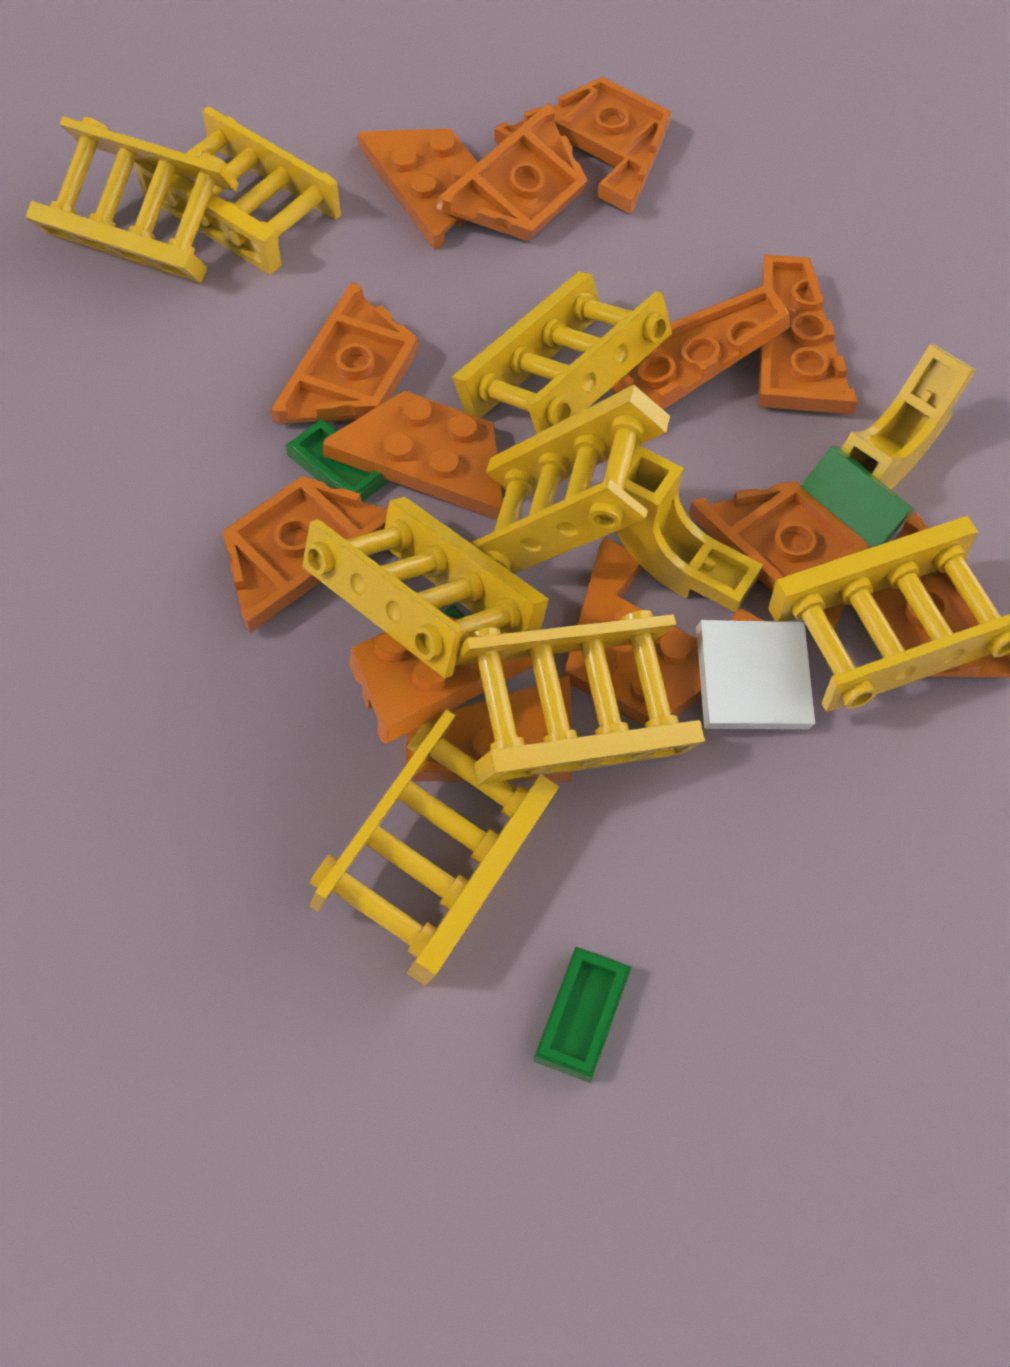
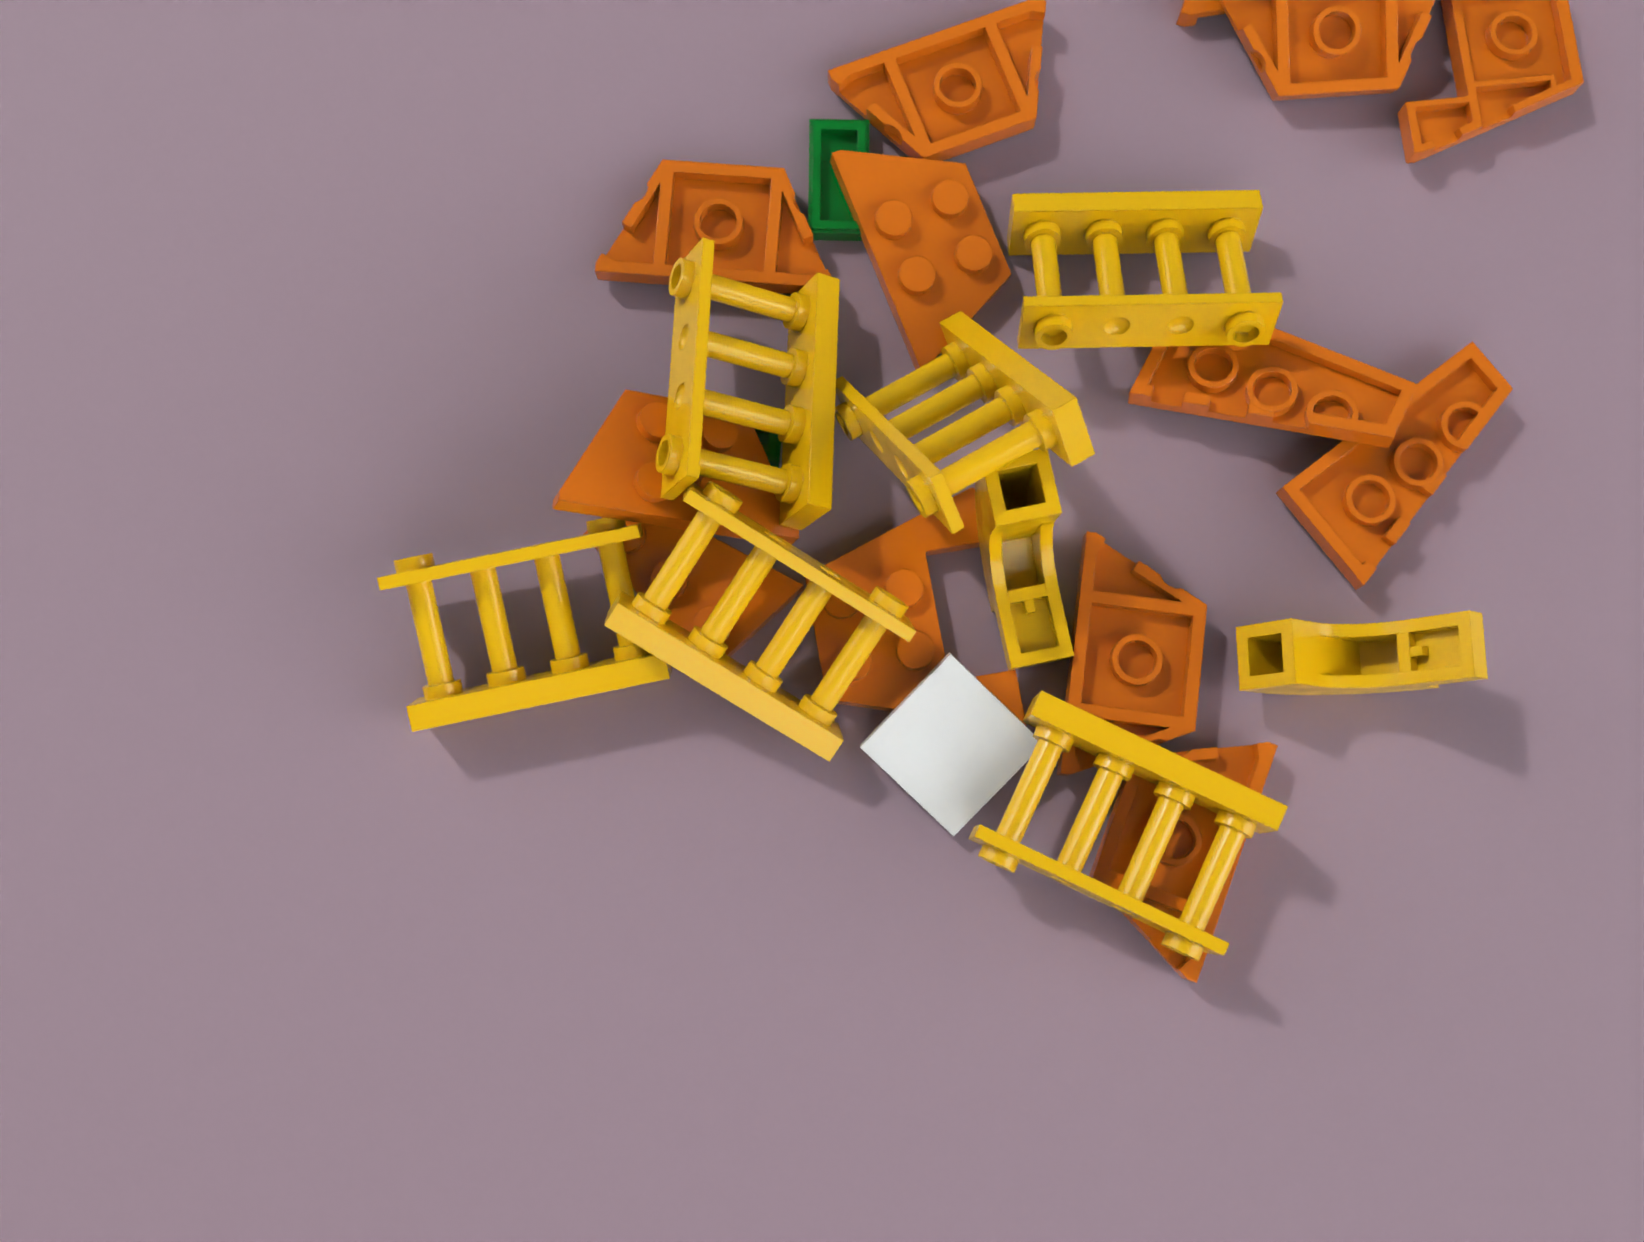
camera: 45 degrees right, 20 degrees up
(582, 1014) = (507, 868): green tile -> none
(857, 497) = (1232, 679): green tile -> none

